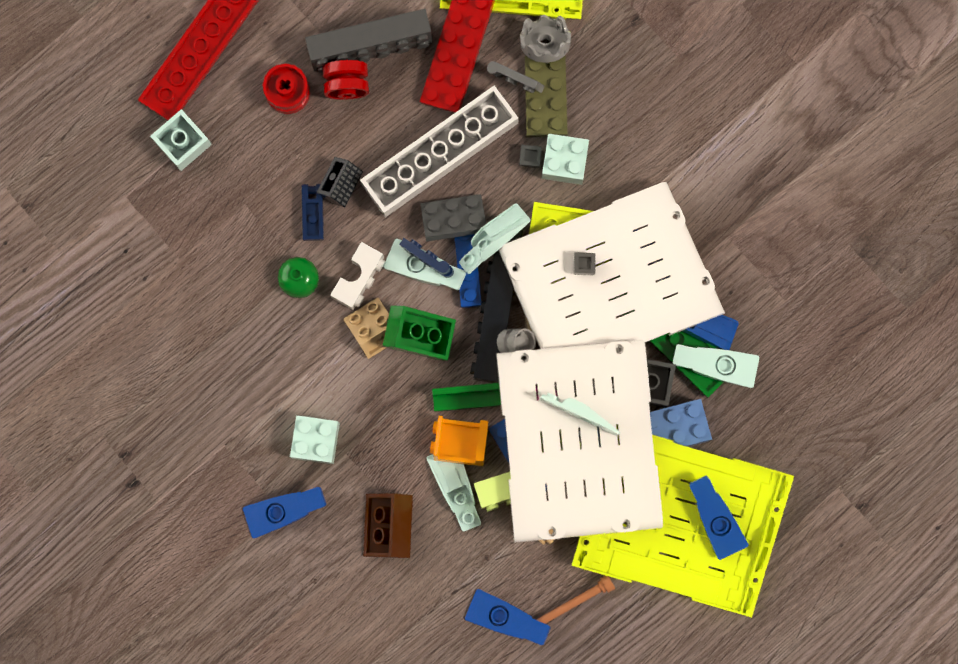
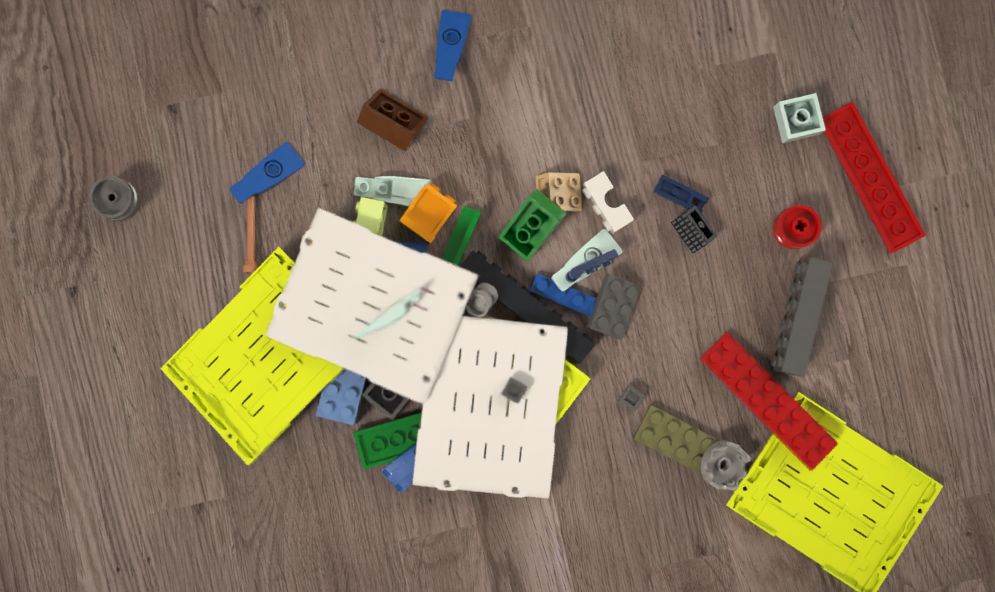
camera: 115 degrees right, 5 degrees up
(298, 277) = (633, 155): green cylinder -> none
(314, 439) = (492, 97): light aqua brick -> none
(345, 79) = (778, 279): red wheel -> none
(439, 151) = (675, 325): white brick -> none
(494, 236) = (579, 330): light aqua piece -> none
(515, 77) = (705, 420): dark grey plate -> none
(565, 159) = (613, 425): light aqua brick -> none
(717, 519) = (248, 383): blue piece -> none
(718, 364) = (373, 456): light aqua piece -> none

